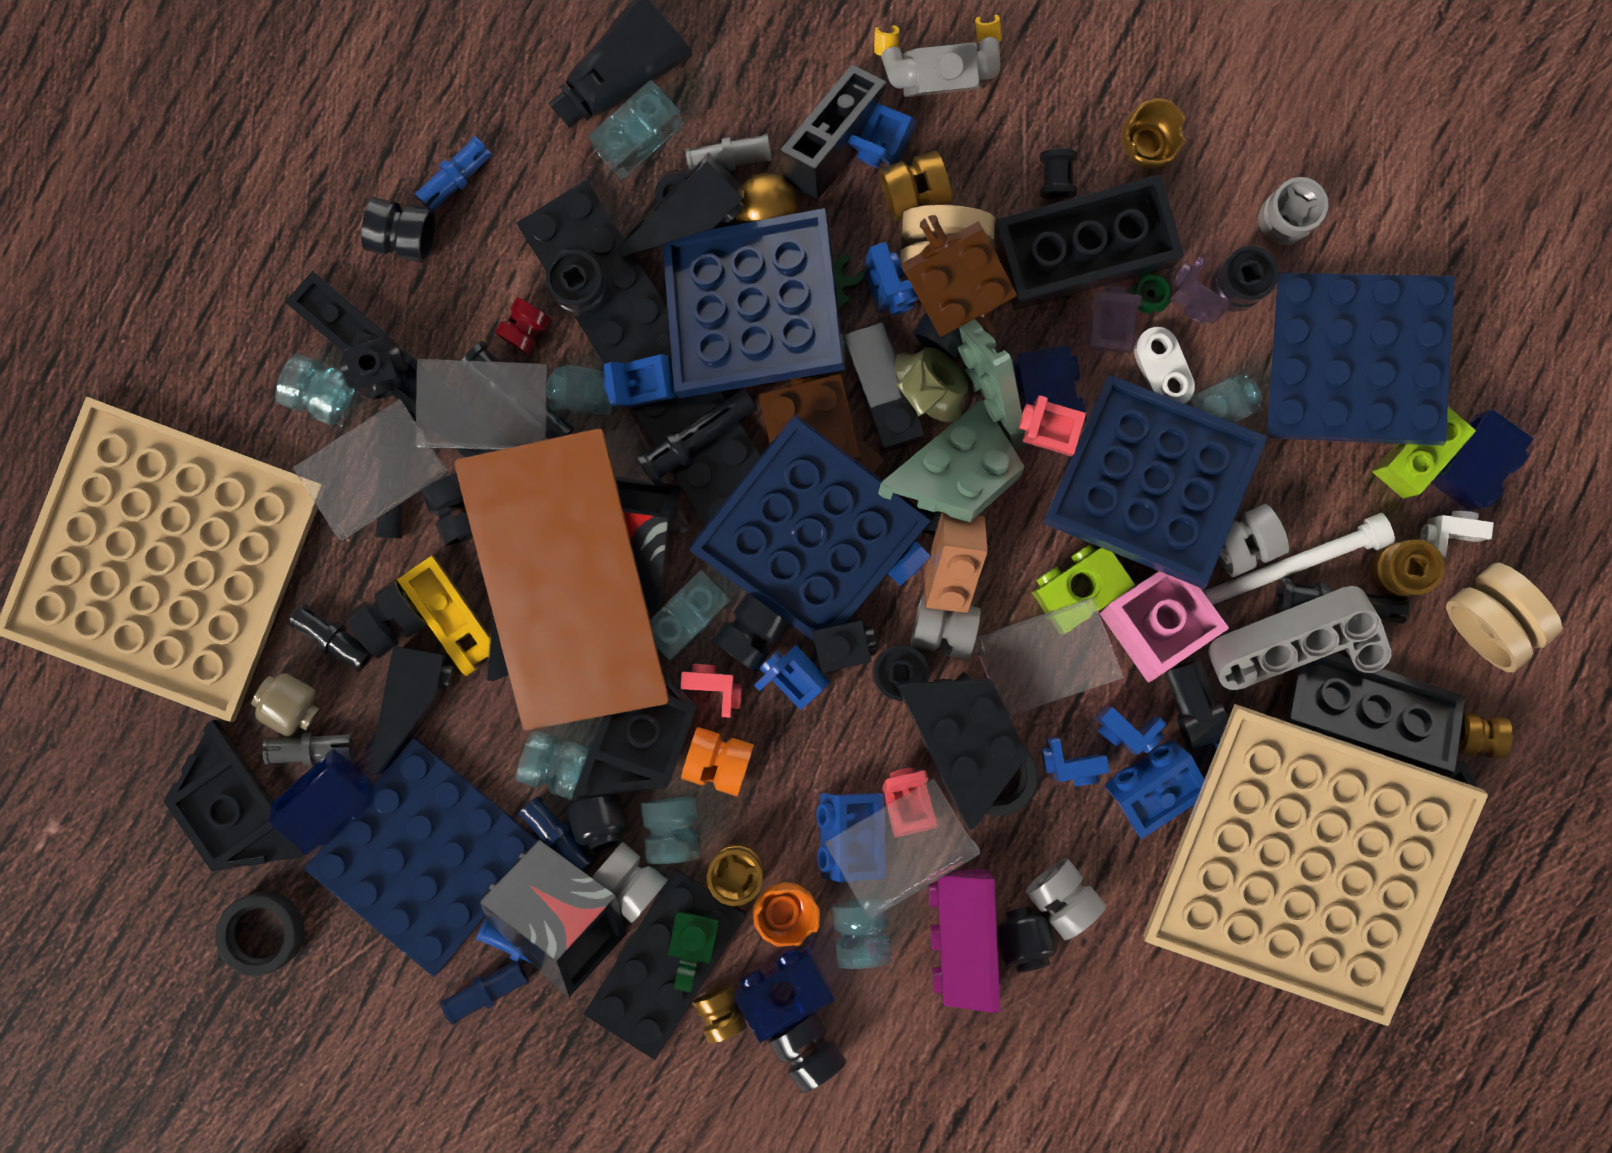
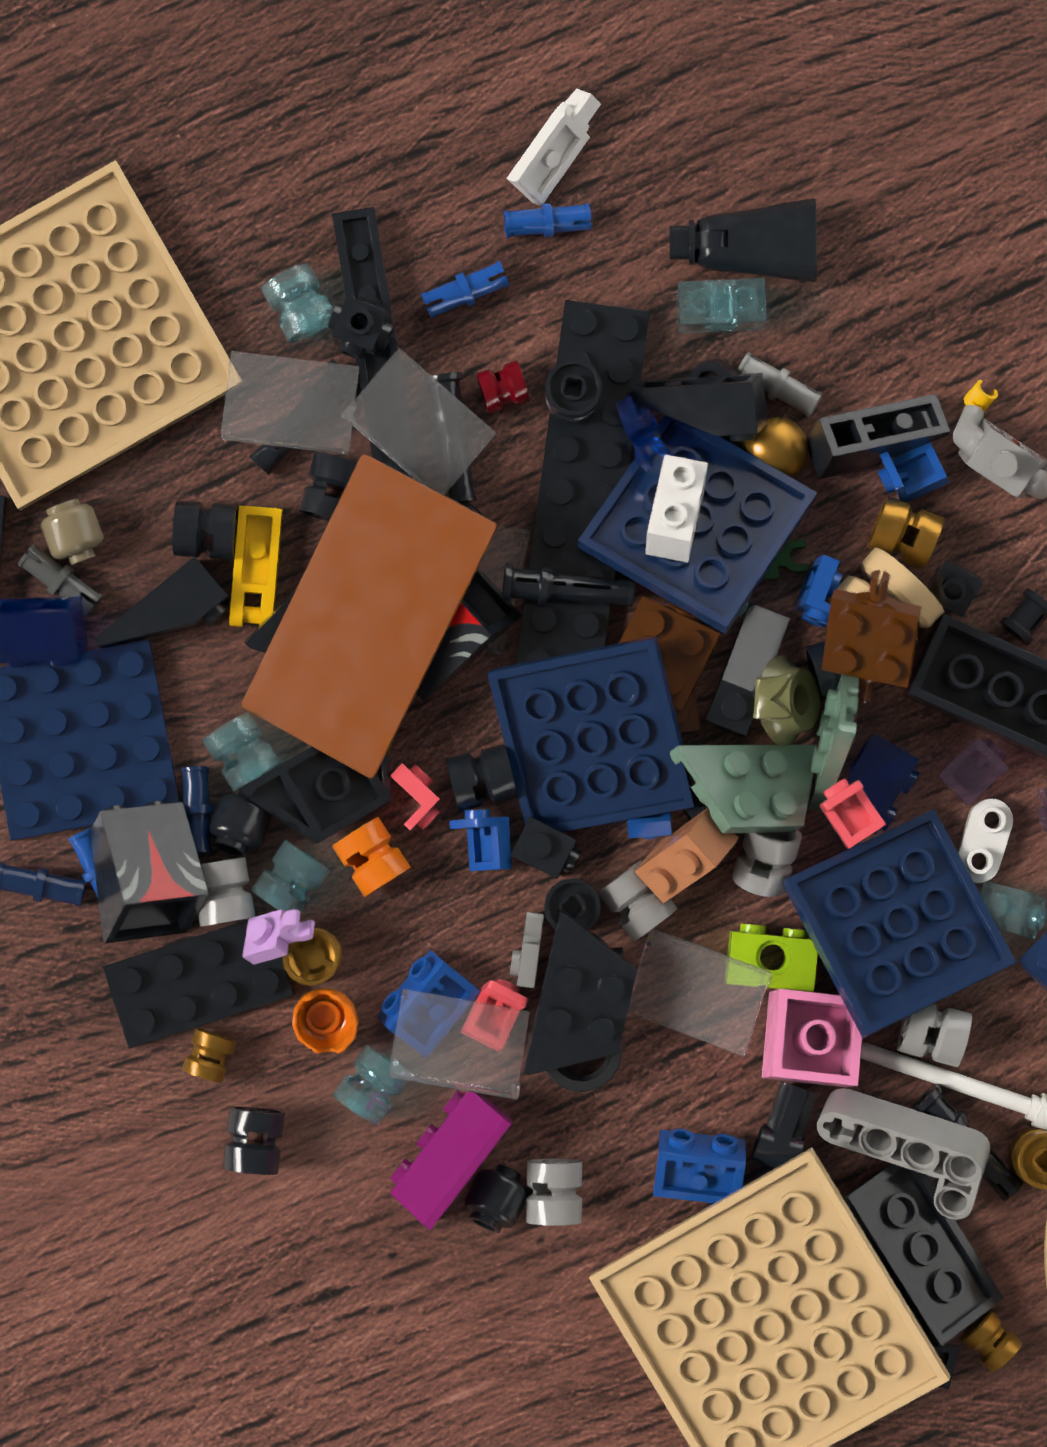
camera: 40 degrees right, 0 degrees up
(330, 637) = (149, 507): black pin -> none
(391, 228) = (471, 234): black wheel -> none
(413, 115) = (554, 147): none -> white hinge
(434, 276) = (465, 289): none -> blue pin
(578, 390) = (506, 475): clear light blue bracket -> none
(639, 381) = (557, 508): blue bracket -> none
(650, 269) = (639, 428): none -> clear blue plate
(688, 614) = (444, 722): clear light blue brick -> none
(690, 884) = (272, 932): none -> lavender plate
(693, 942) = (235, 981): dark green plate -> none
(728, 304) = (676, 508): none -> white brick
(769, 1015) = (246, 1087): clear blue brick -> none
(899, 743) = (525, 961): none -> light grey plate
(987, 192) = (954, 587): none -> black bracket
(1017, 517) = (766, 862): none -> light grey wheel
(1081, 770) = (651, 1102): blue bracket -> none
(1120, 731) = (706, 1095): blue bracket -> none
(1161, 293) = (1033, 769): dark green plate -> none

